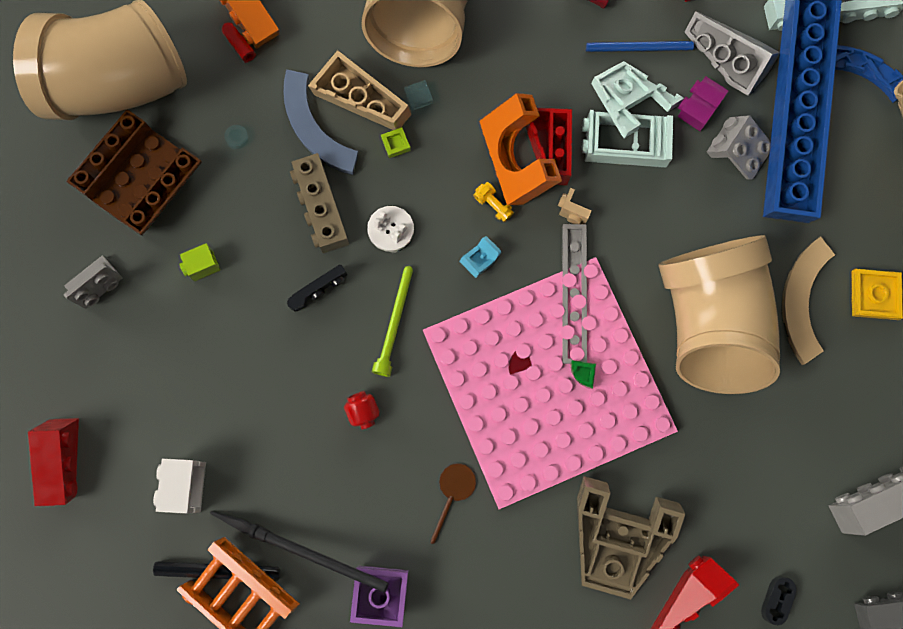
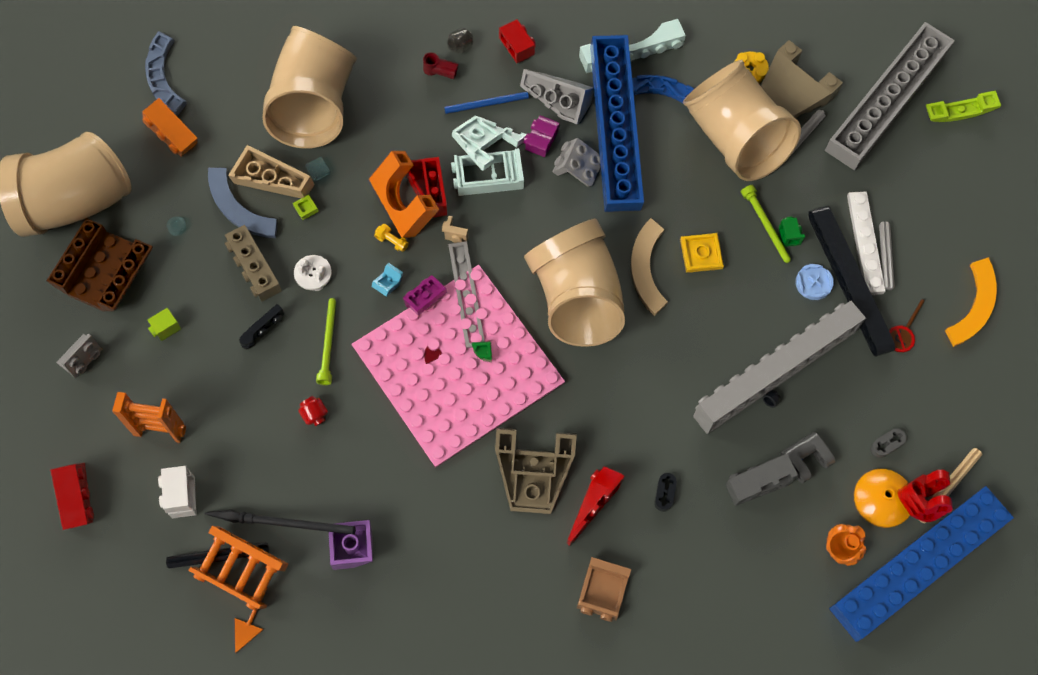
camera: 10 degrees left, 10 degrees down
(145, 383) = (146, 417): none -> orange fence
(238, 42) = (166, 154): red bar -> none
(457, 484) = (397, 454): reddish brown piece -> none
(523, 286) = (424, 295): none -> magenta bracket

